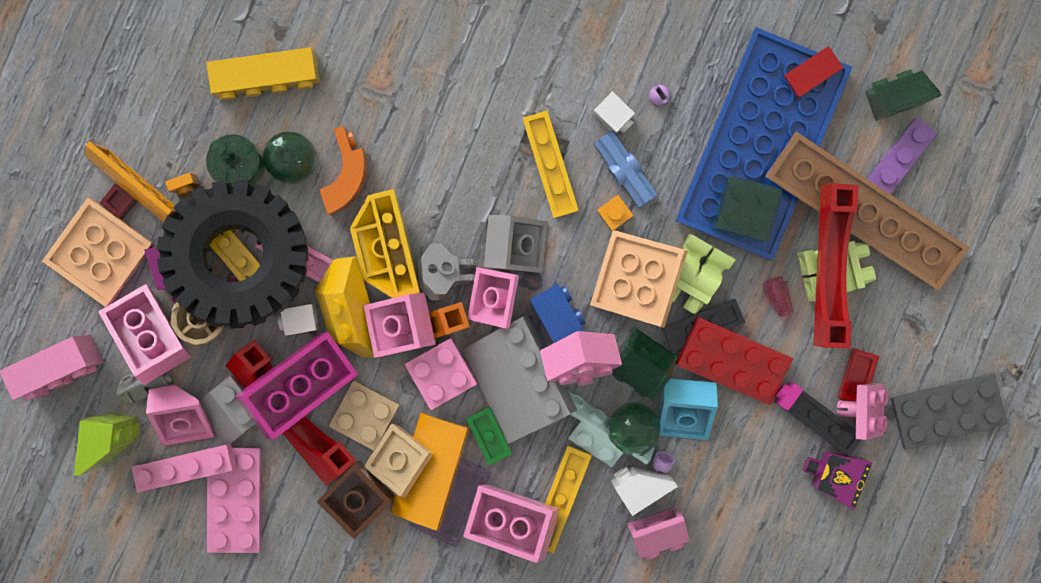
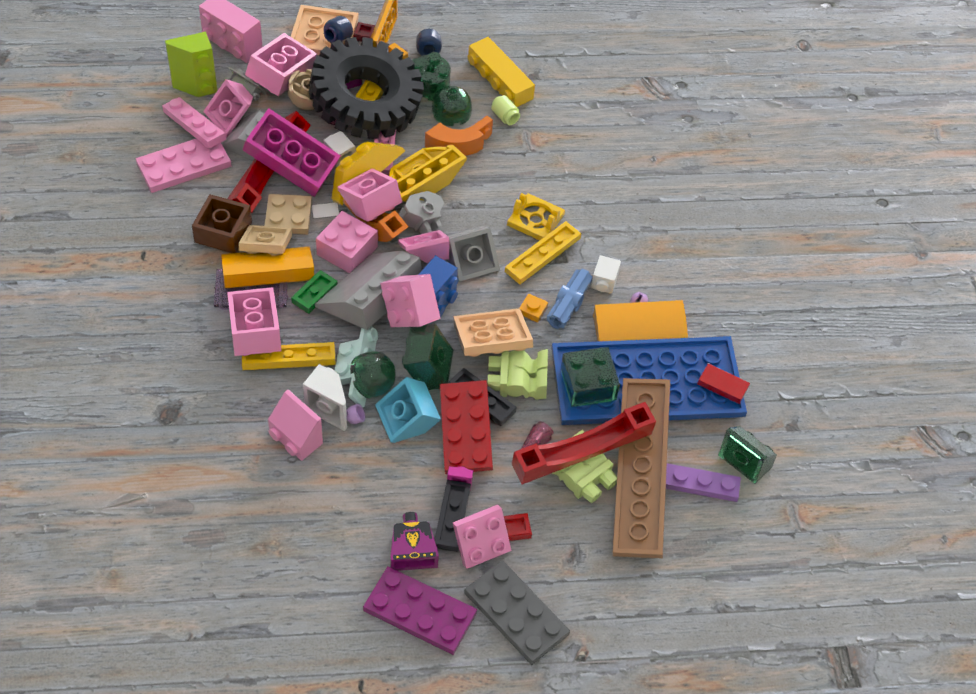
camera: 60 degrees right, 35 degrees down
(116, 240) = (338, 29): none -> dark blue head
(177, 135) = (428, 41): none -> dark blue head
(326, 98) = (505, 110): none -> yellowish green brick
(375, 371) = (325, 210): none -> white sticker
(521, 148) = (528, 200): none -> yellow piece
(692, 111) = (640, 321): none -> light orange slope
(904, 499) = (420, 610): none -> magenta plate

